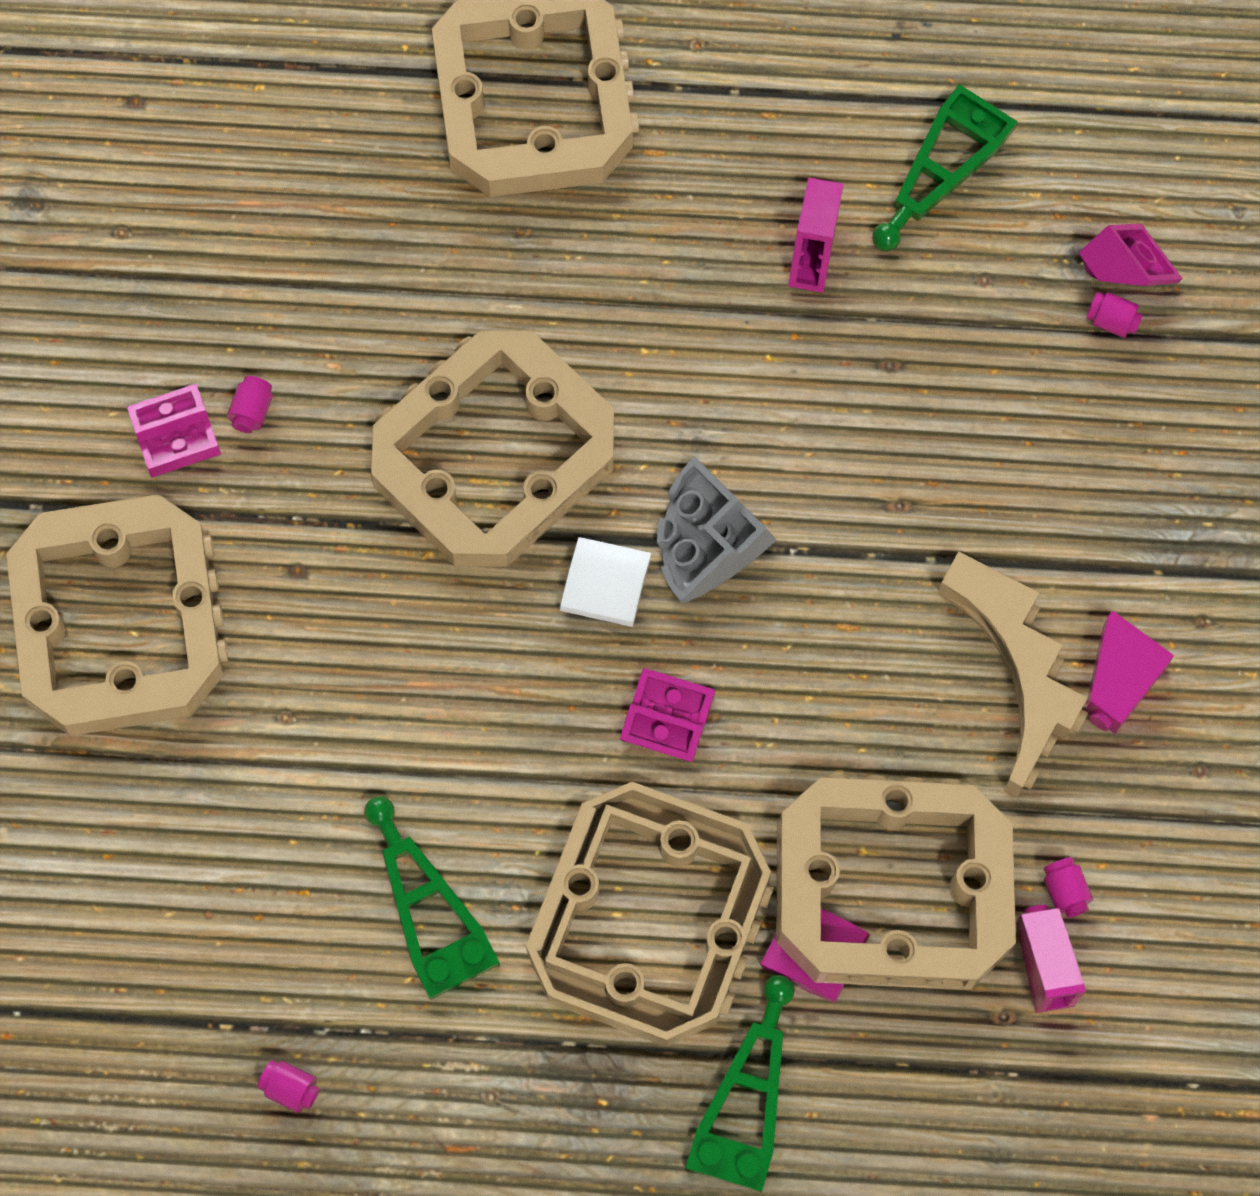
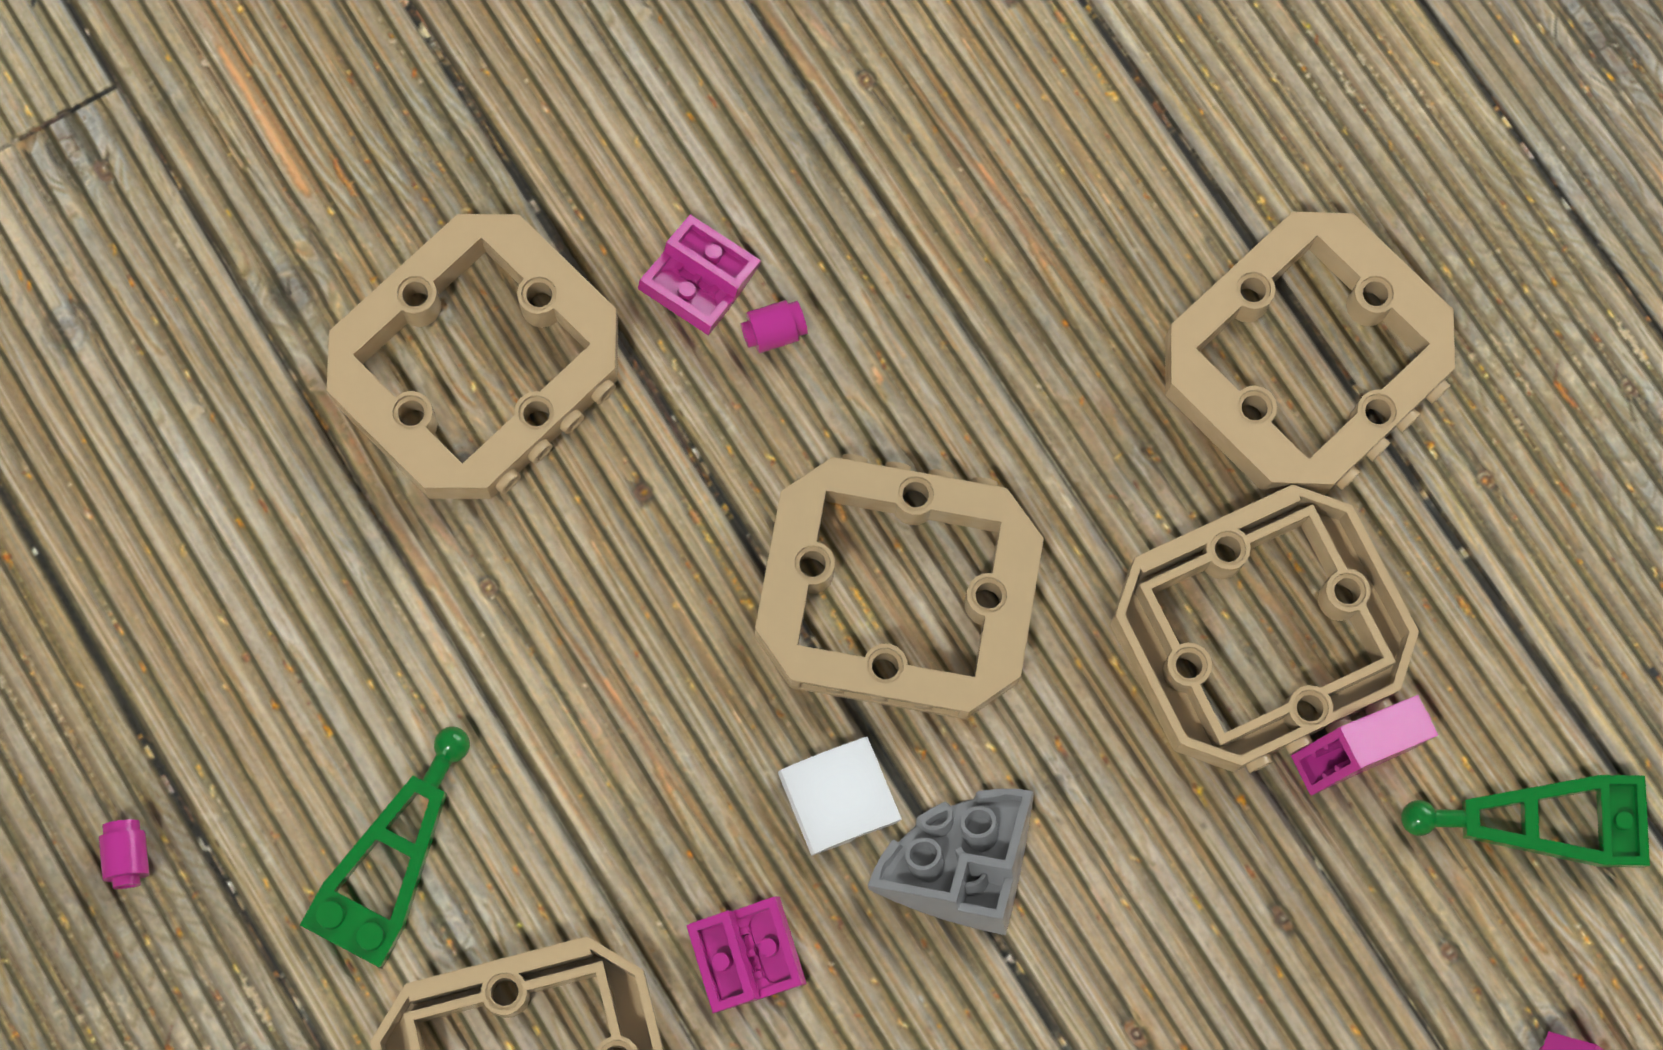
camera: 50 degrees right, 5 degrees up
(687, 160) = (1347, 560): none -> tan panel

